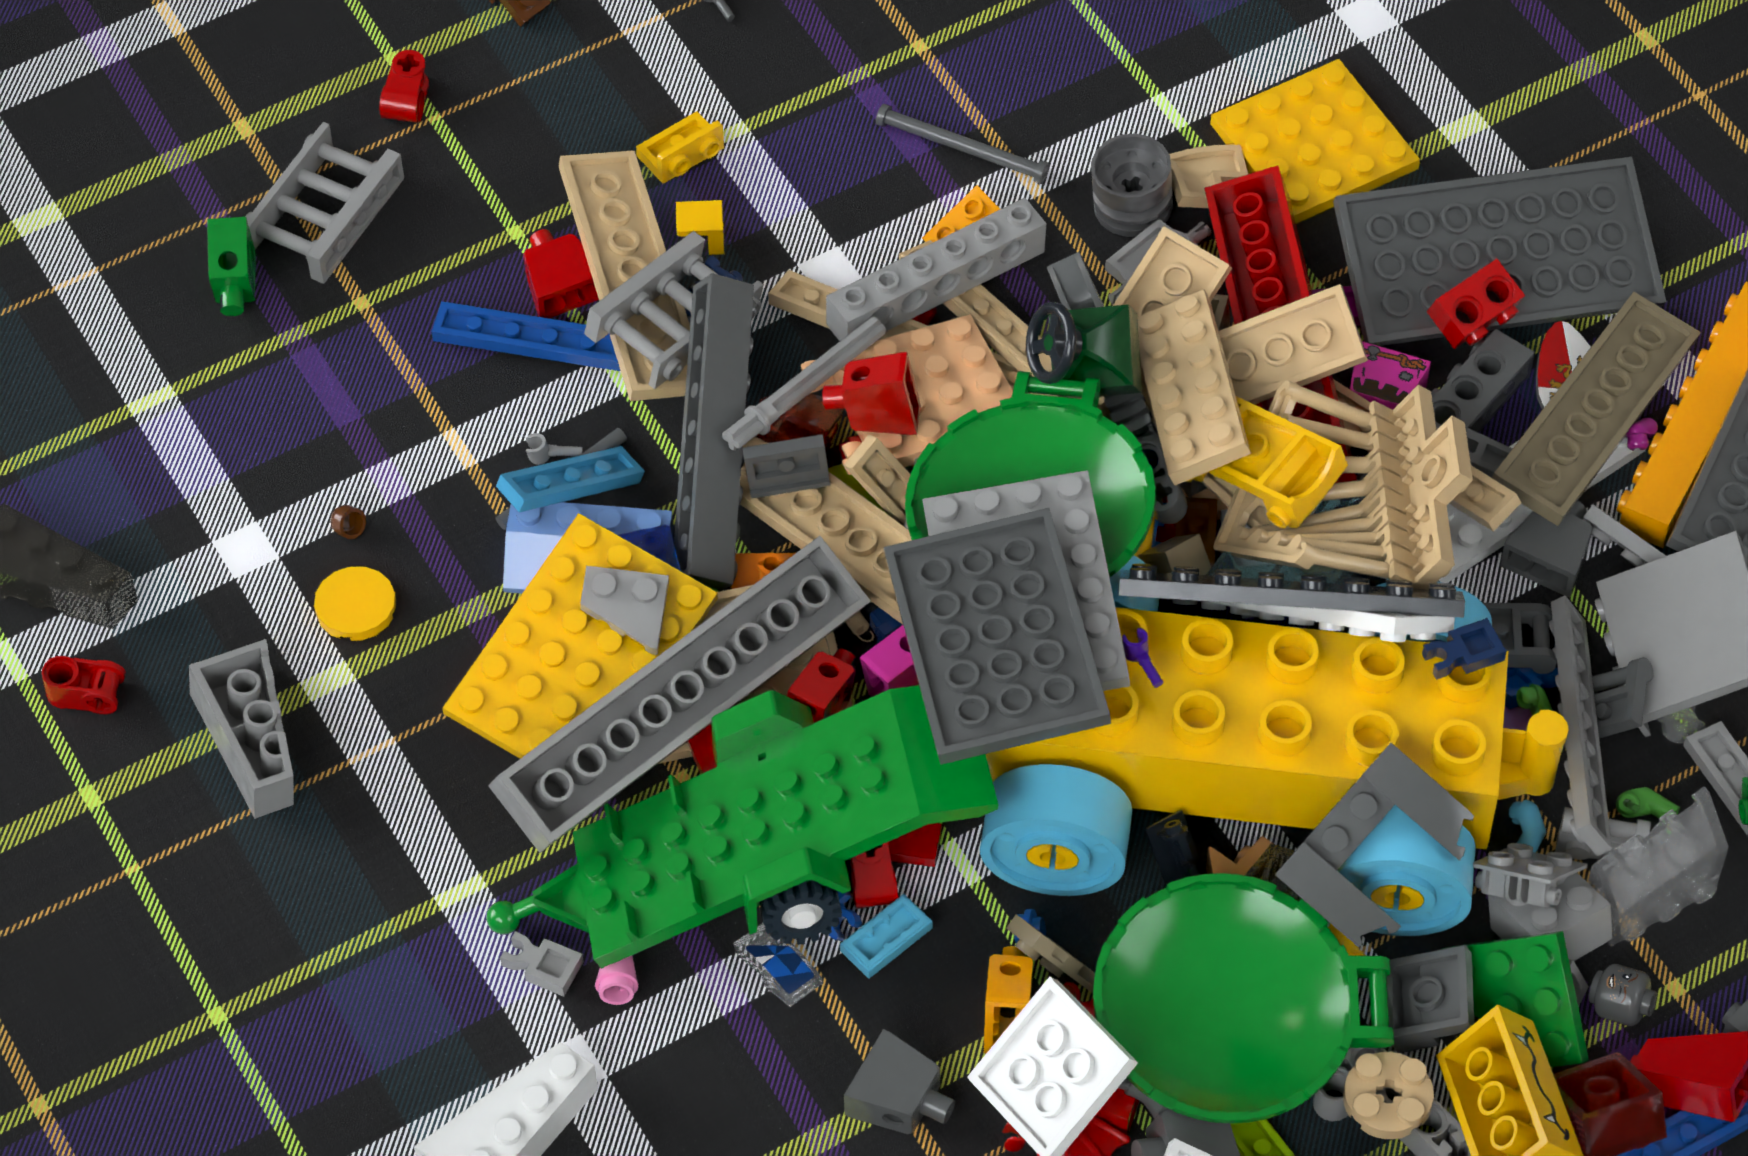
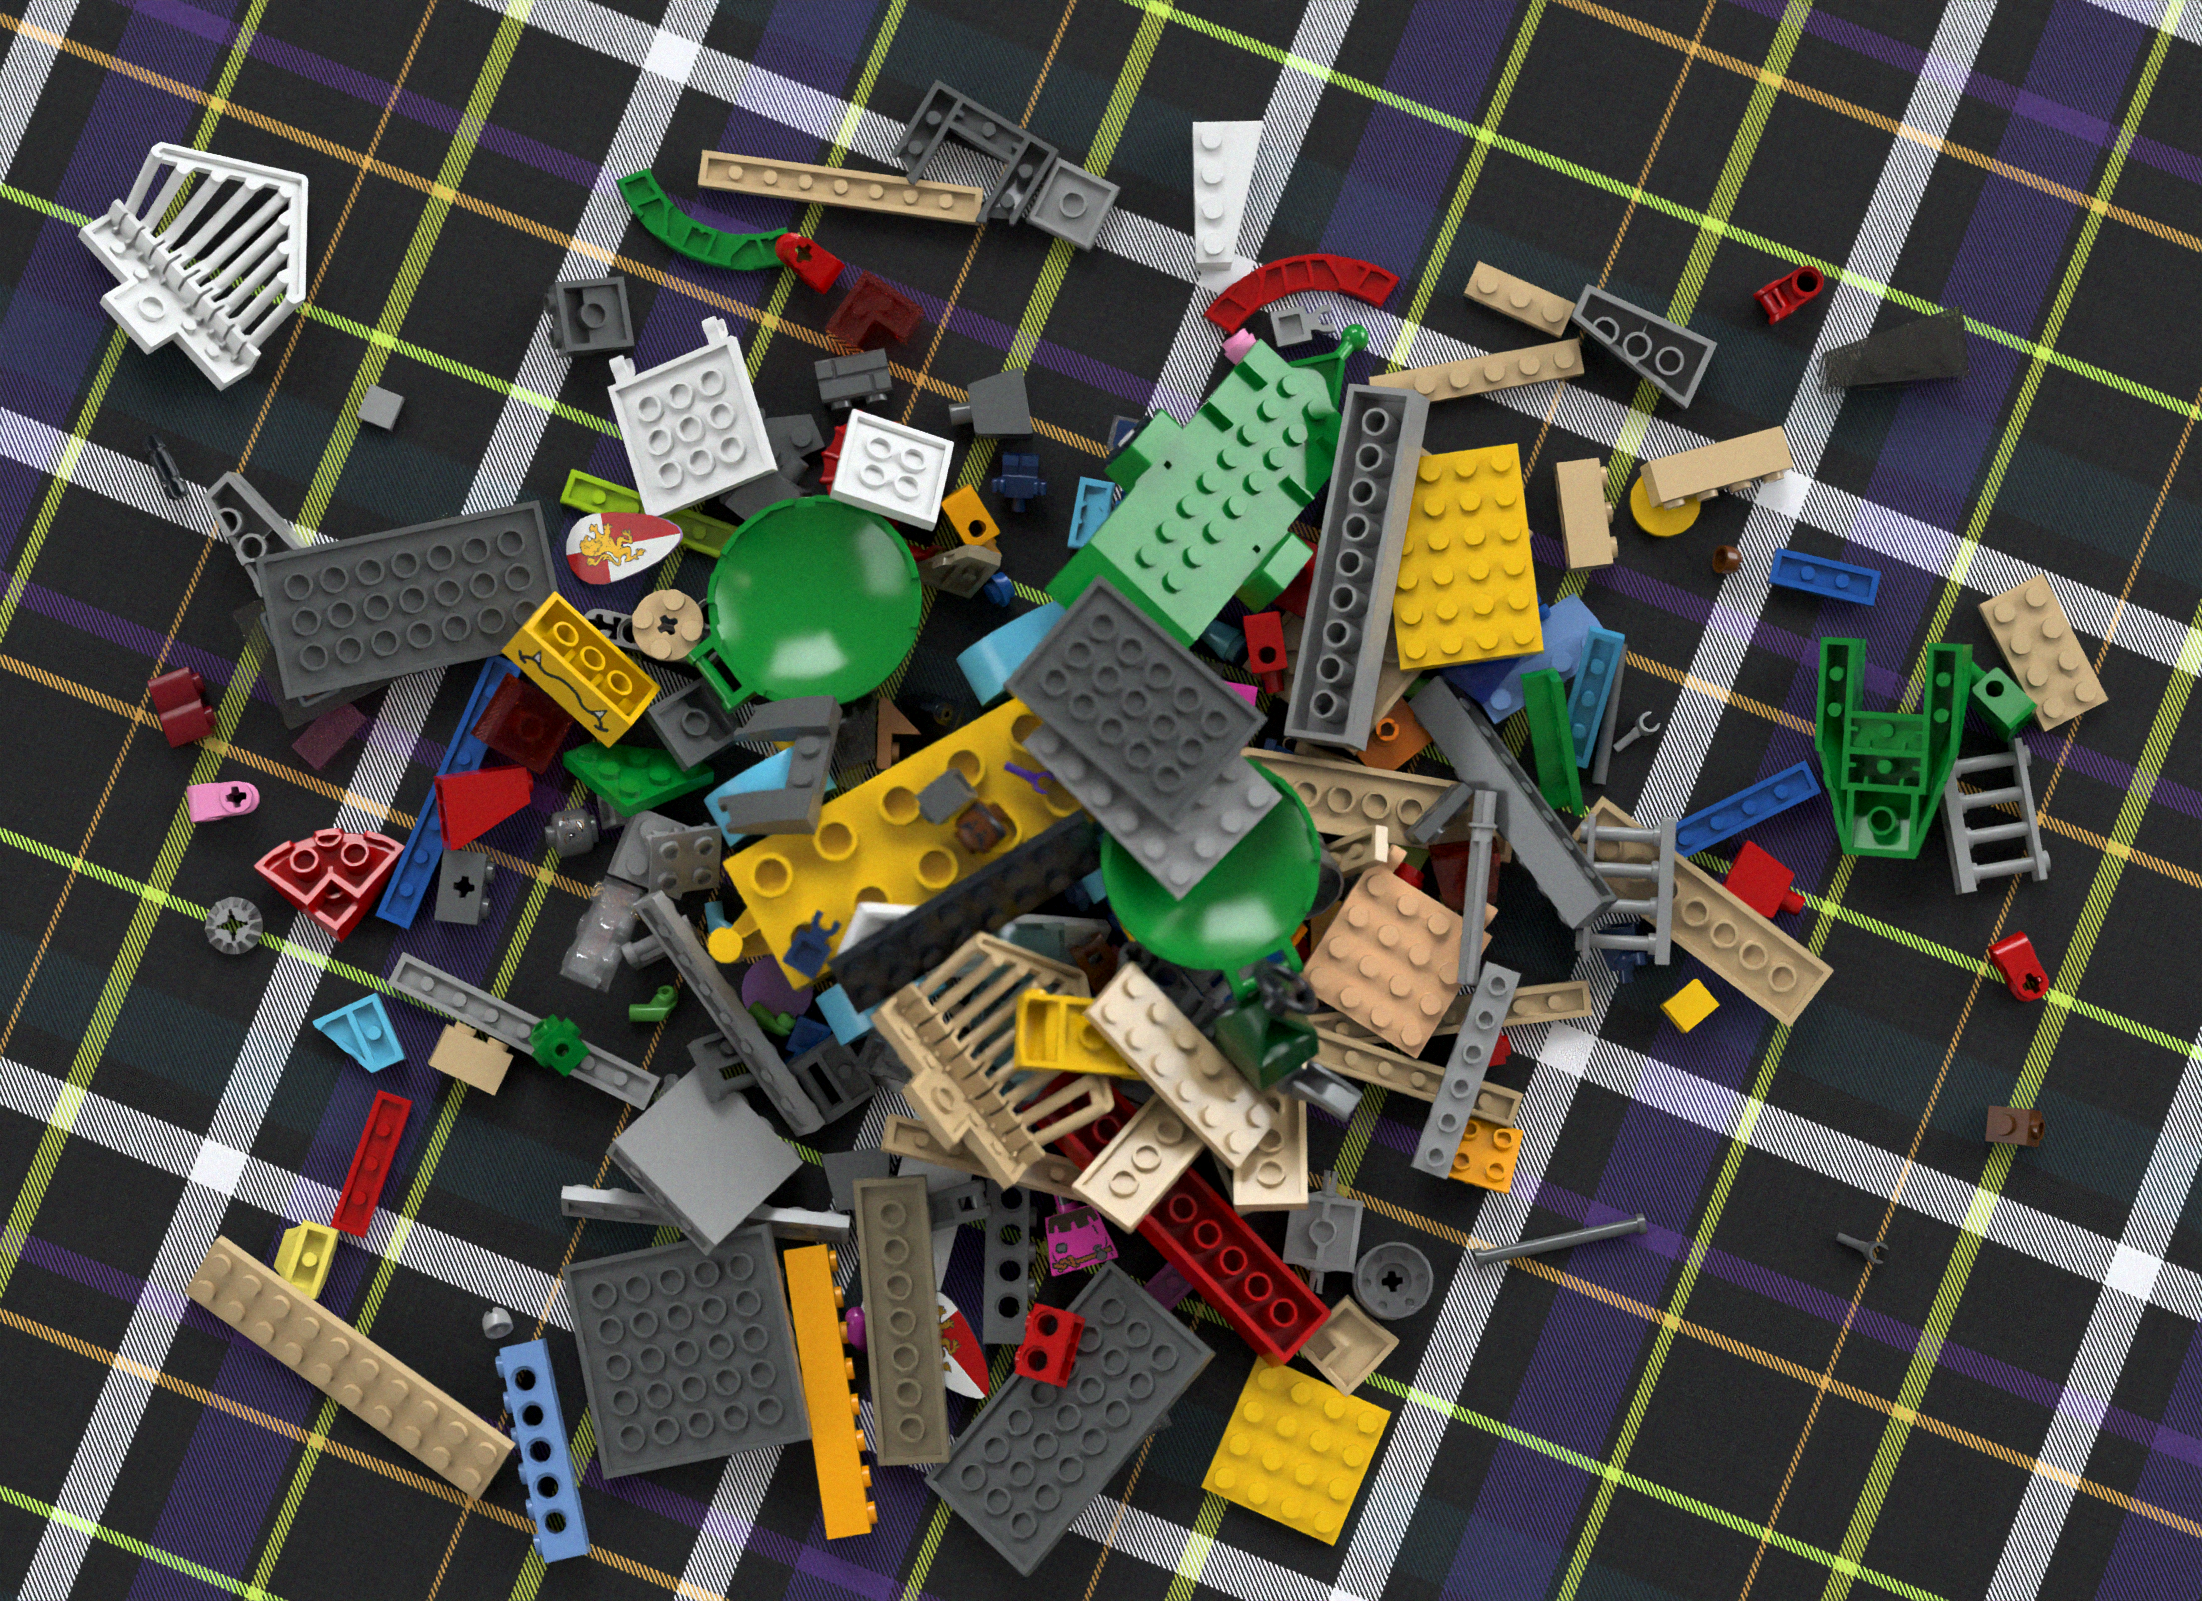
camera: 140 degrees right, 30 degrees up
(157, 292) = (2042, 652): none -> tan plate
(279, 454) = (1824, 577): none -> blue plate
(286, 586) = (1717, 467): none -> tan brick
(323, 851) = (1519, 299): none -> tan plate
(375, 267) = (1884, 765): none -> green wedge
(422, 815) = (1489, 372): none -> tan plate
(436, 633) = (1584, 515): none -> tan brick
(511, 1014) = (1296, 276): none -> red tile
(628, 602) = (1449, 604): light grey wing -> none
(630, 465) = (1552, 739): none -> green fence
(681, 146) = (1766, 1072): yellow bracket -> none
(877, 395) = (1400, 907): red torso -> none
(926, 1010) = (1019, 479): none -> dark blue piece
(1178, 551) = (1097, 933): dark tan panel -> none
(1224, 639) = (981, 827): none -> reddish brown head
(1238, 686) = (946, 797): none -> dark grey brick

